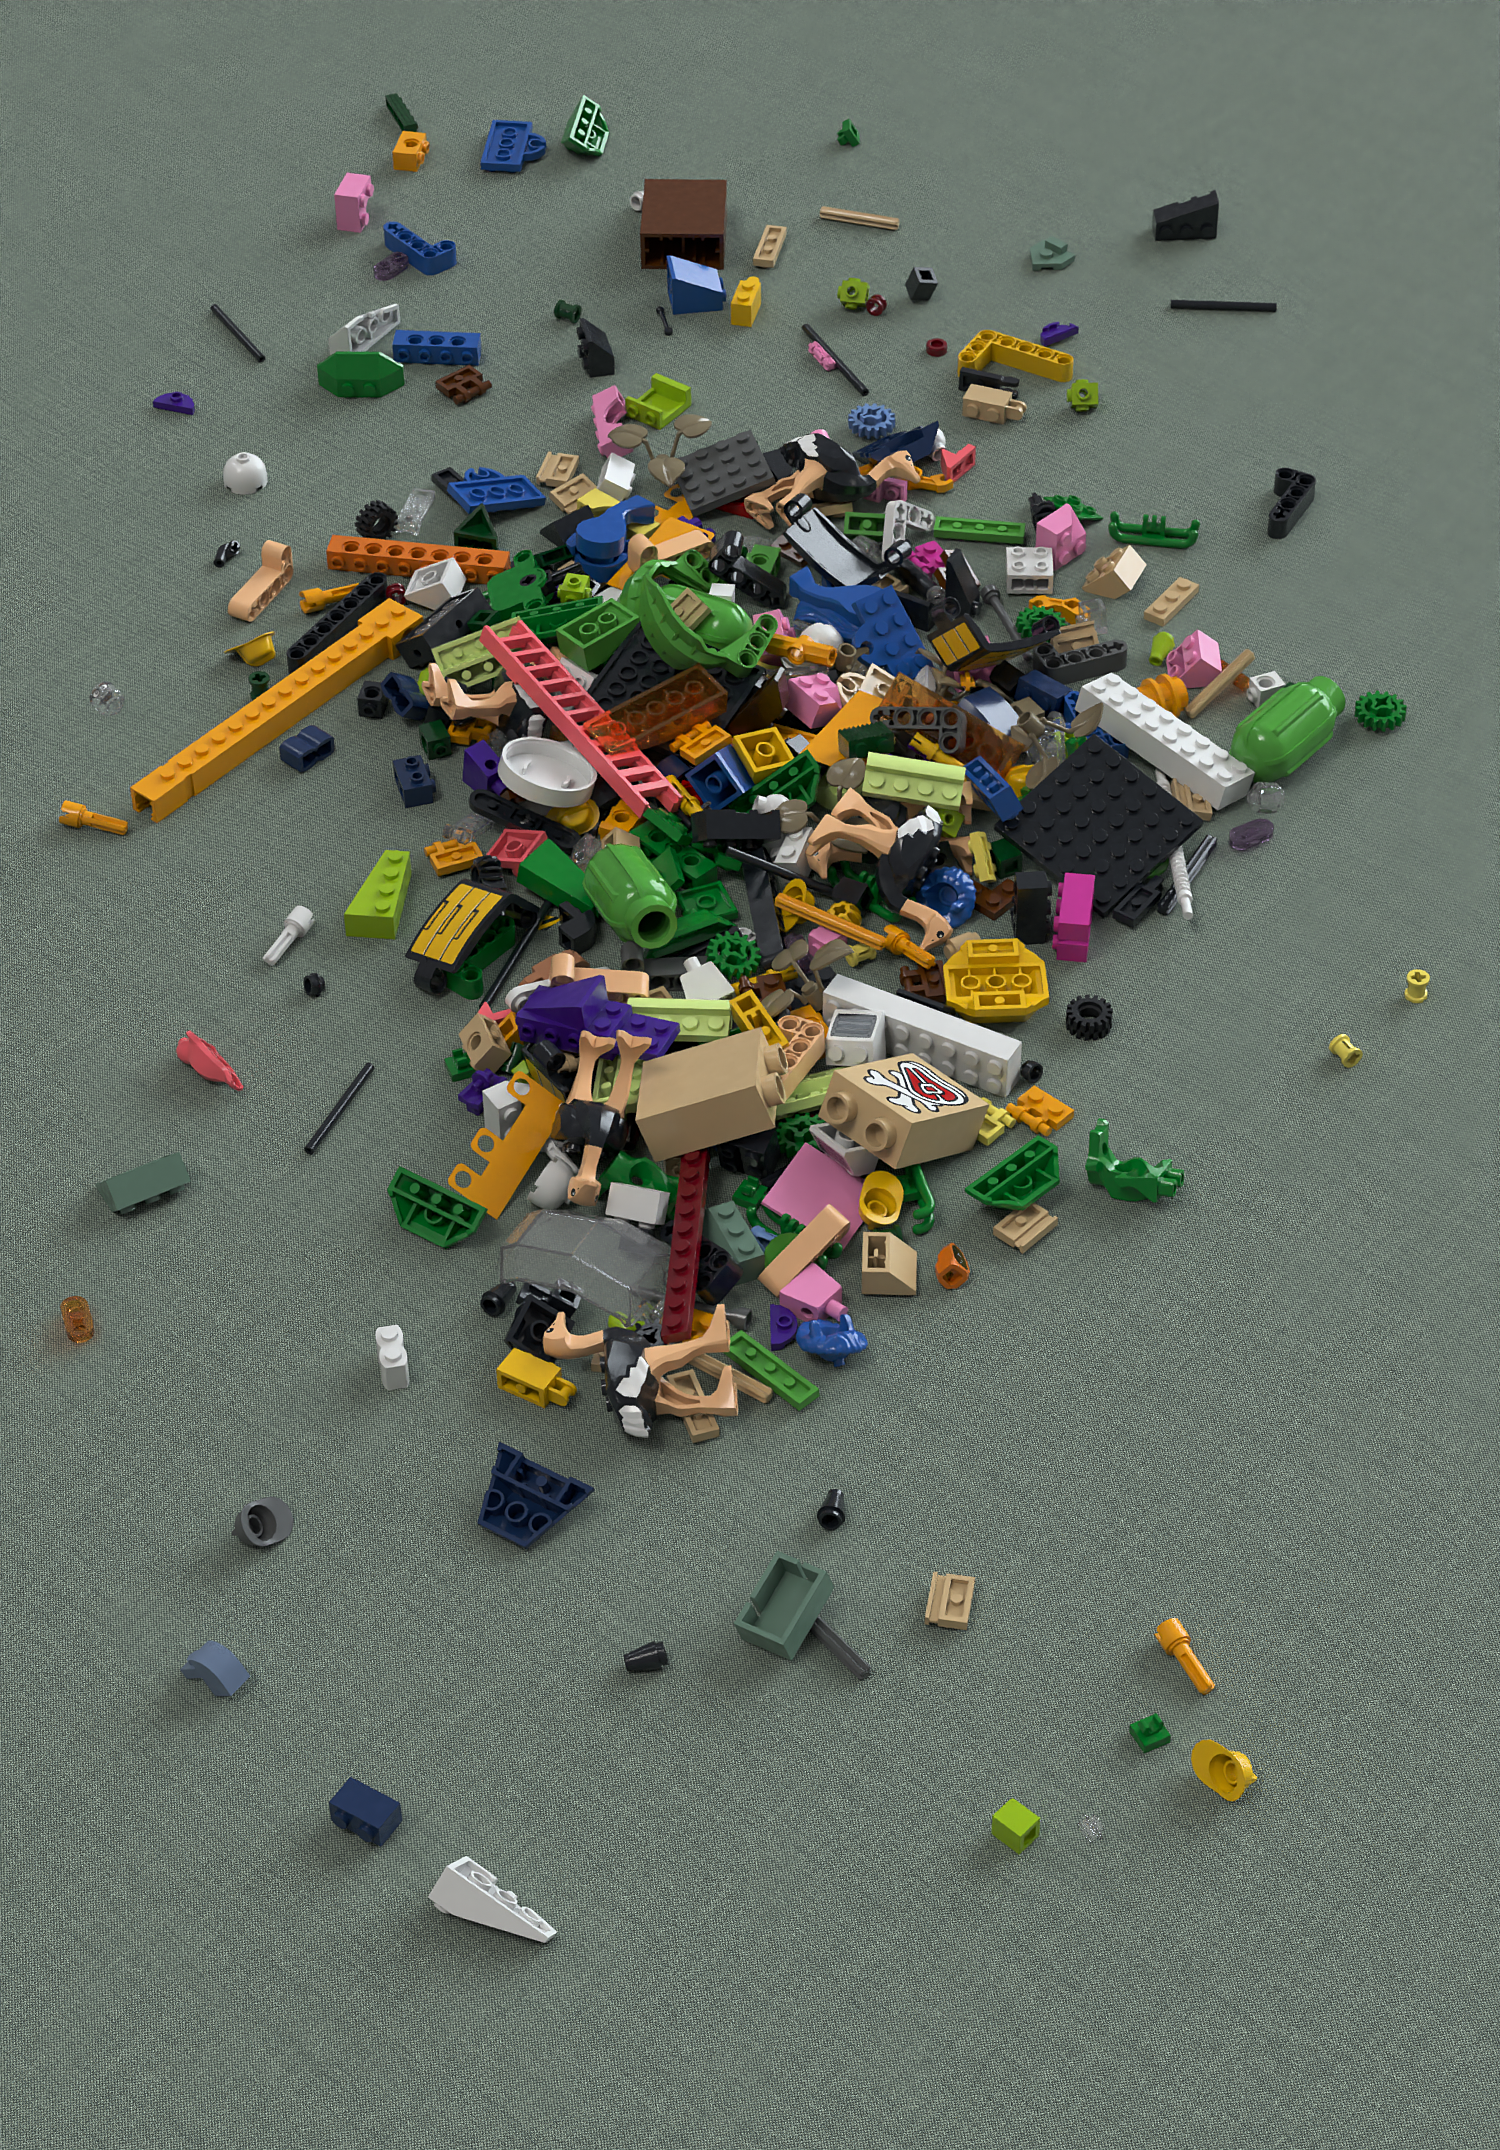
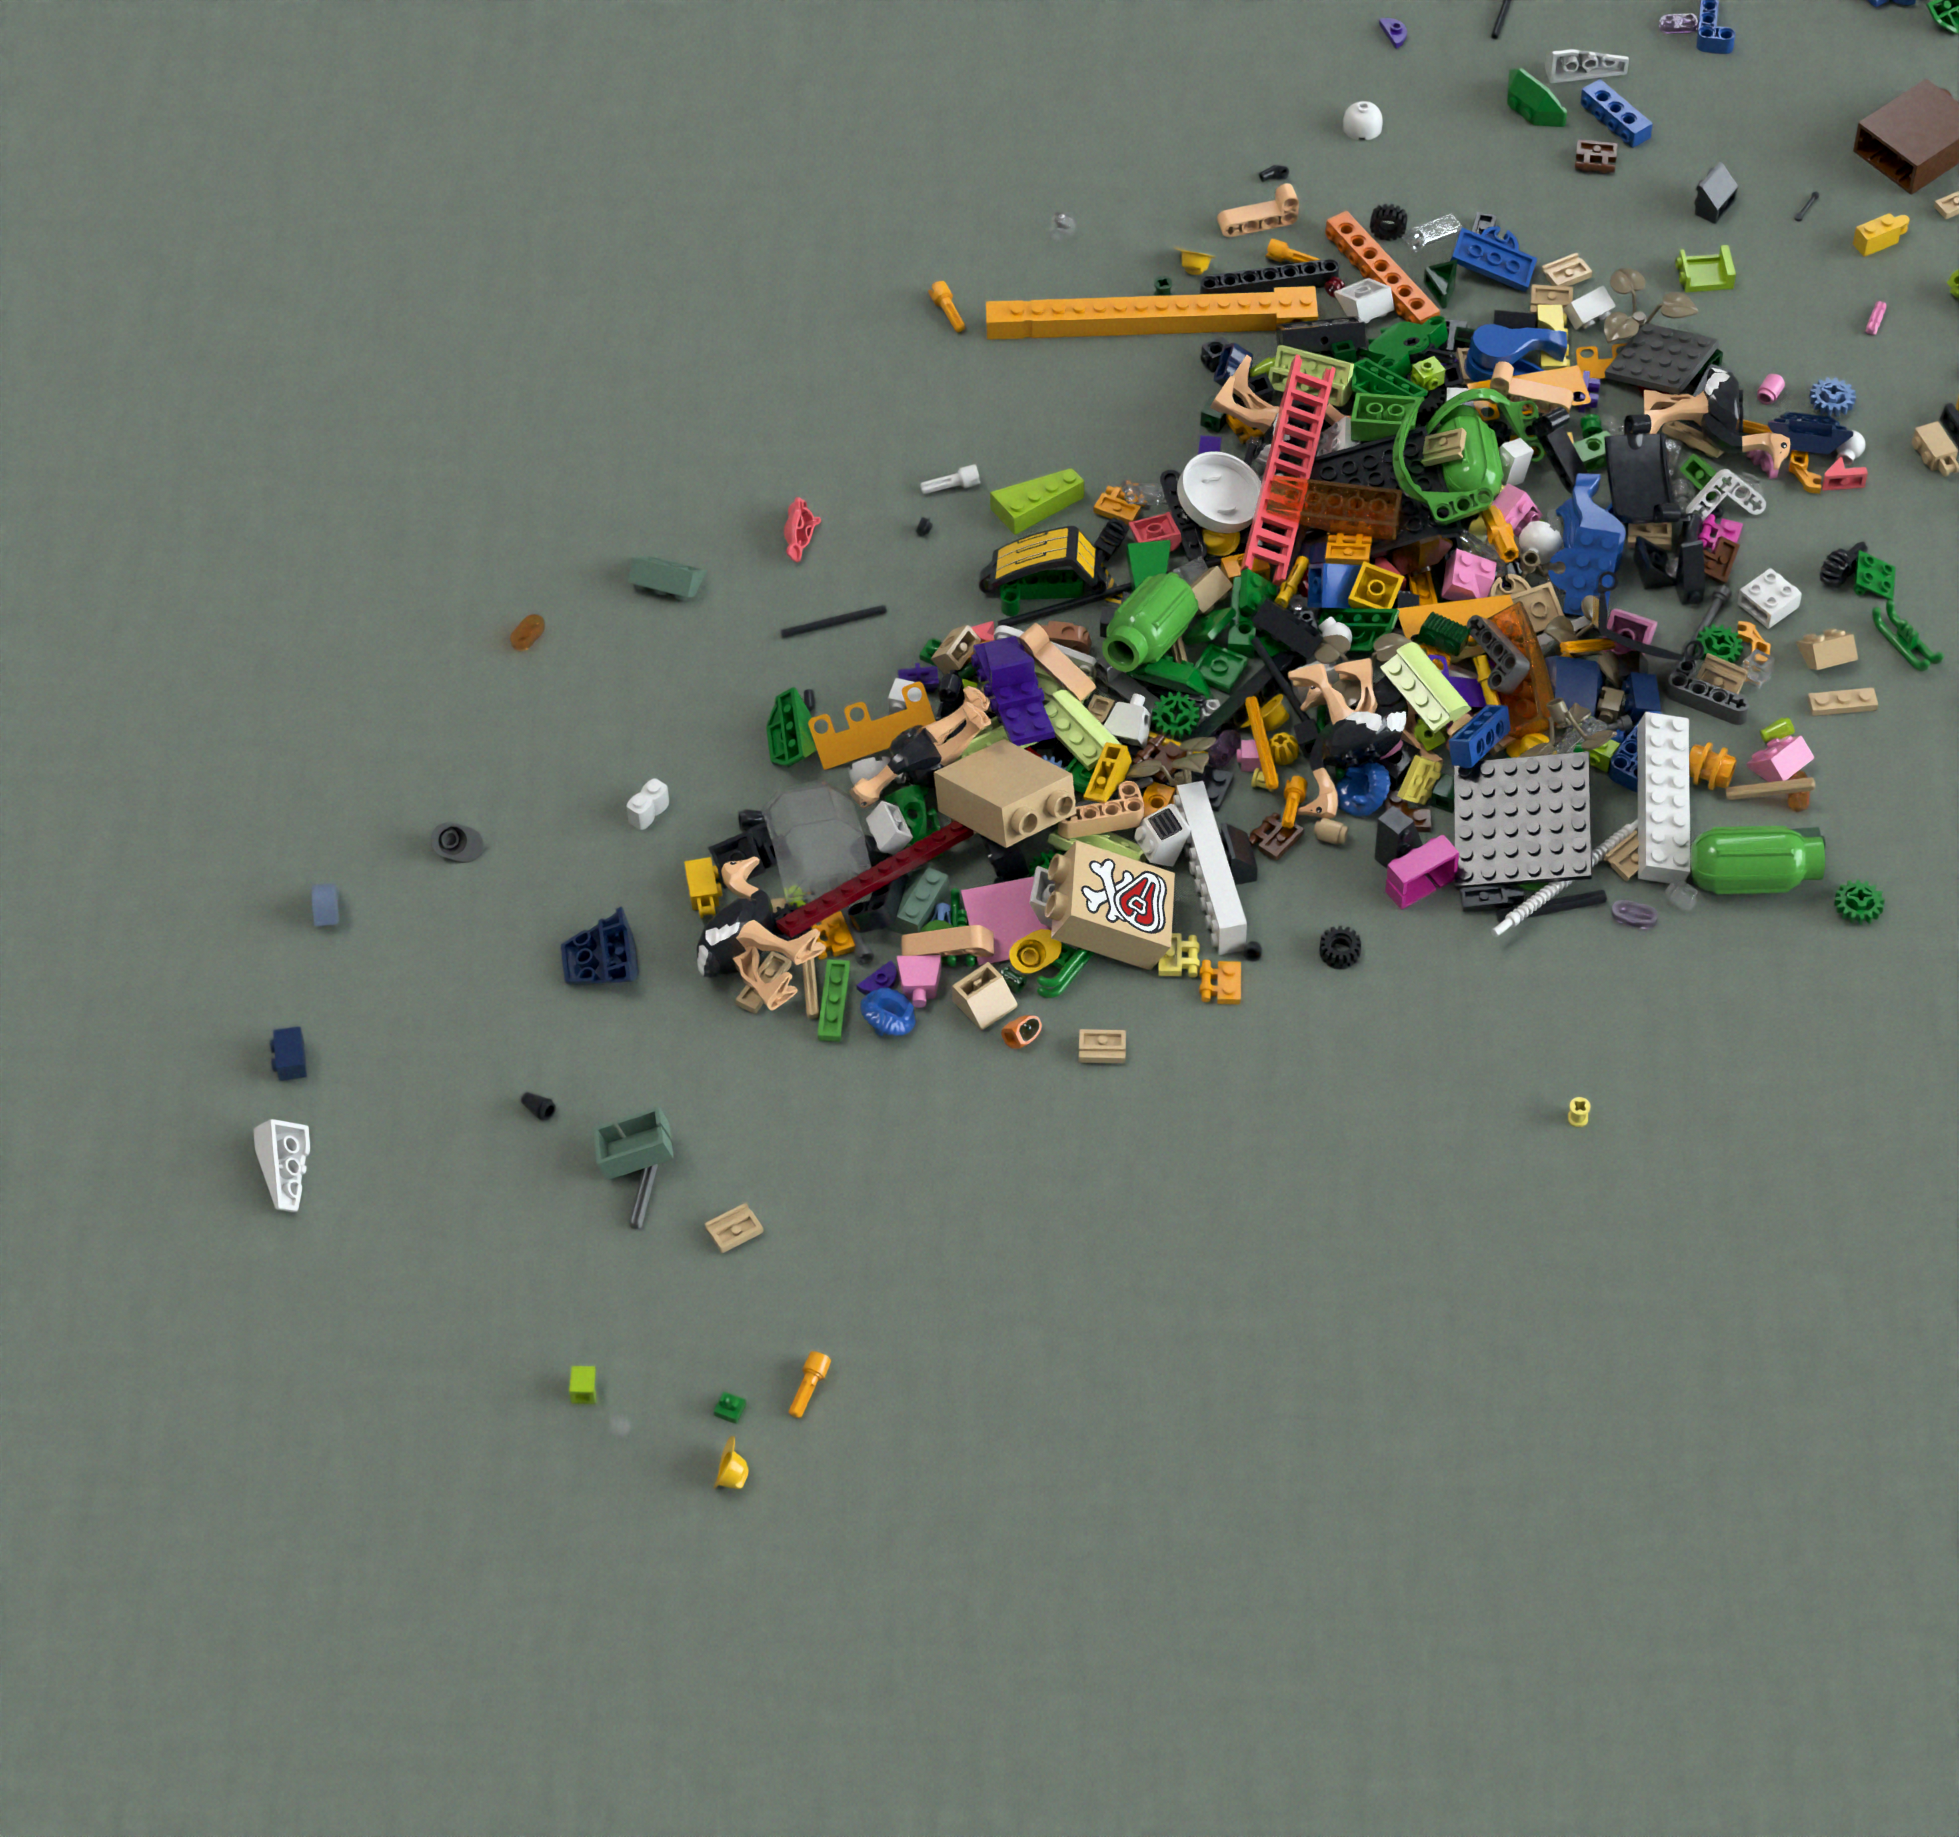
camera: 50 degrees right, 10 degrees up
(307, 748) = (1132, 357): dark blue brick -> none
(414, 781) = (1163, 433): dark blue brick -> none
(561, 309) = (1745, 149): dark green bush -> none
(608, 409) = (1660, 249): bright pink arch -> none
(693, 287) = (1855, 192): blue slope -> none
(749, 1193) = (978, 878): green tile -> none
(832, 1513) = (747, 1115): black cone -> none
(852, 378) = (1882, 328): black piece -> none
(979, 530) = (1786, 540): bright green plate -> none
(995, 981) = (1307, 871): yellow piece -> none
(1019, 1178) = (1130, 1011): green wedge -> none
(1063, 534) = (1823, 590): bright pink slope -> none
(1130, 1178) = (1199, 1051): green hips -> none
(1263, 687) = (1801, 817): white brick -> none
(1345, 1050) = (1466, 1113): light yellow bush -> none

